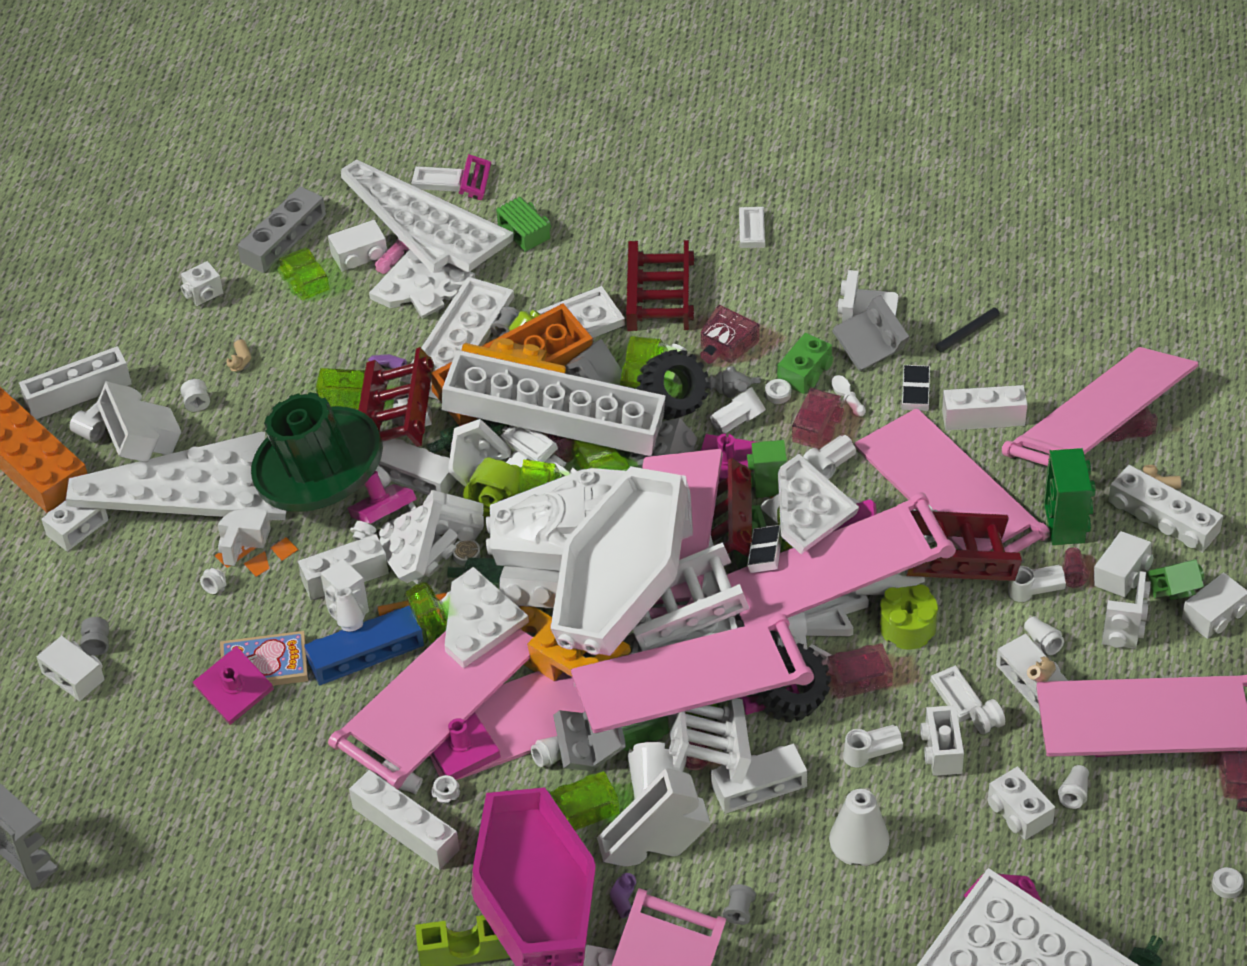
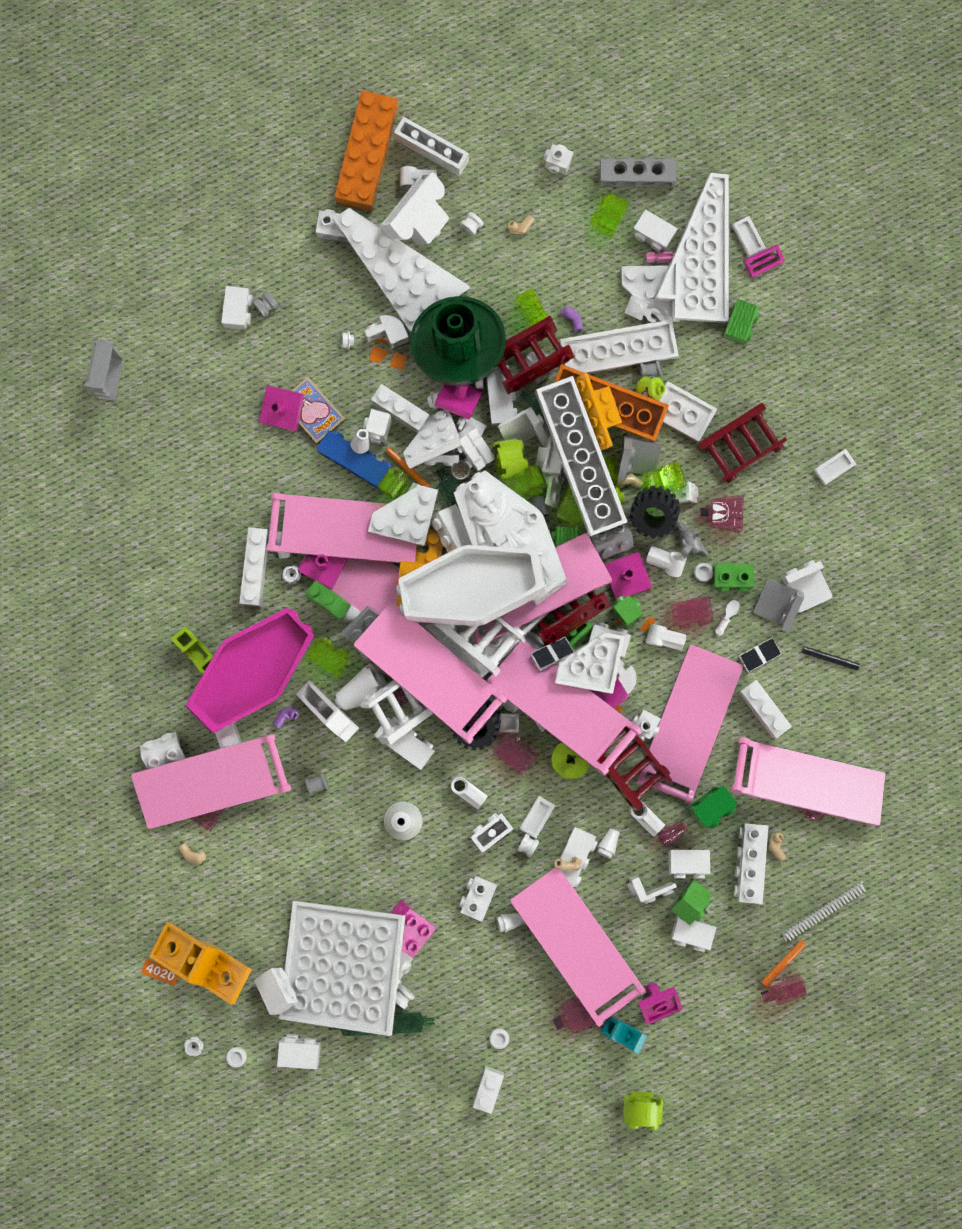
camera: 55 degrees right, 35 degrees up
(511, 755) = (328, 600): none -> bright green brick

